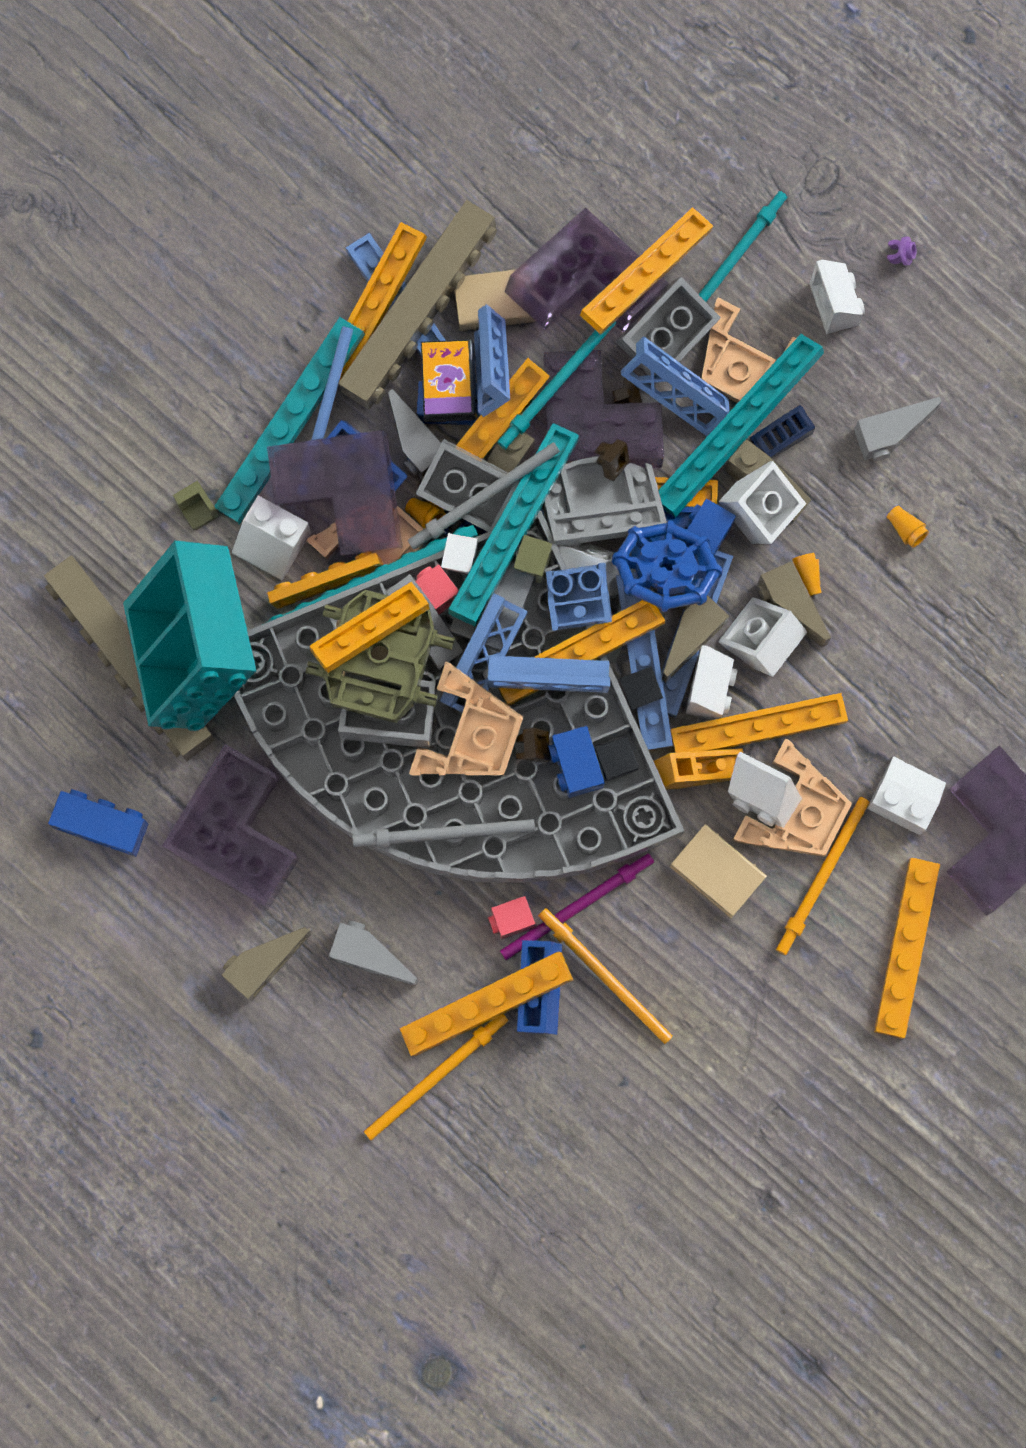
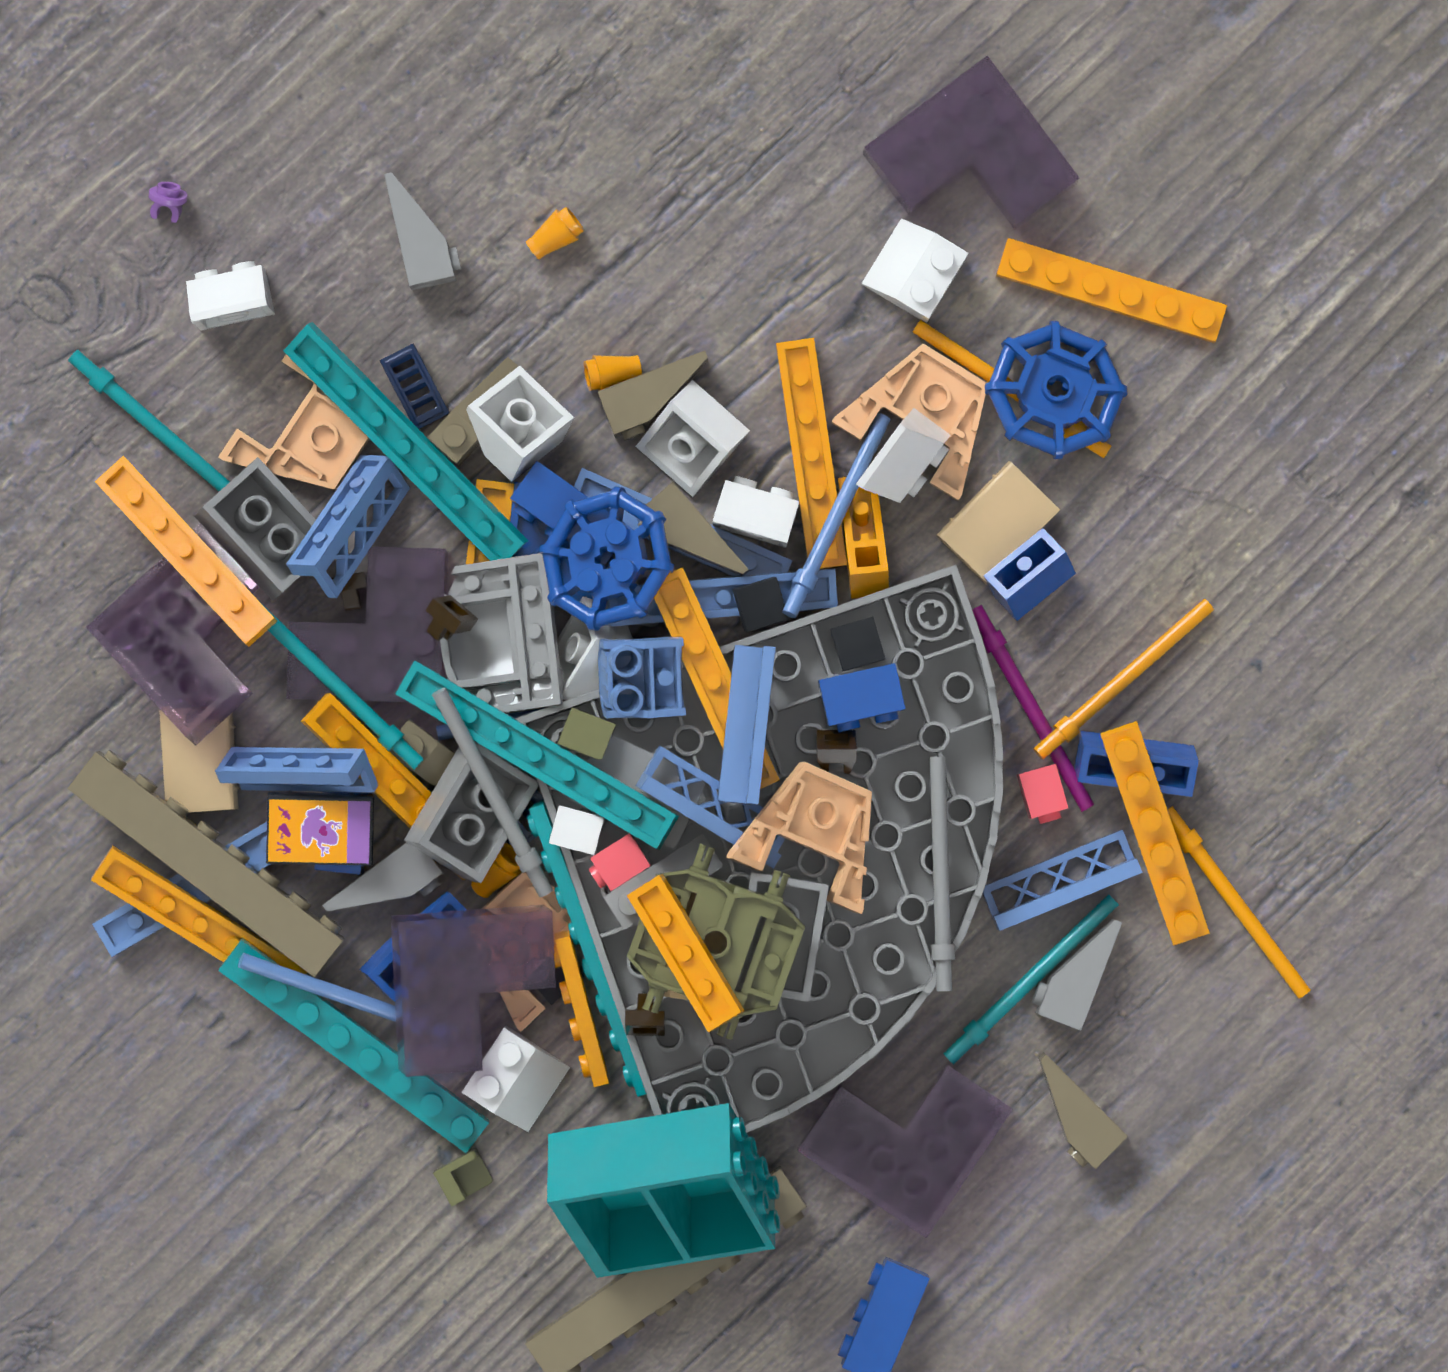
camera: 85 degrees left, 10 degrees up
(315, 619) = (644, 1022): none -> dark brown tile
(324, 880) = (977, 1030): none -> teal bar
(434, 941) = (1067, 893): none -> medium blue fence
(664, 721) = (806, 578): none -> medium blue bar
(680, 895) = (1029, 574): none -> blue brick
(810, 911) = (1050, 410): none -> blue plate

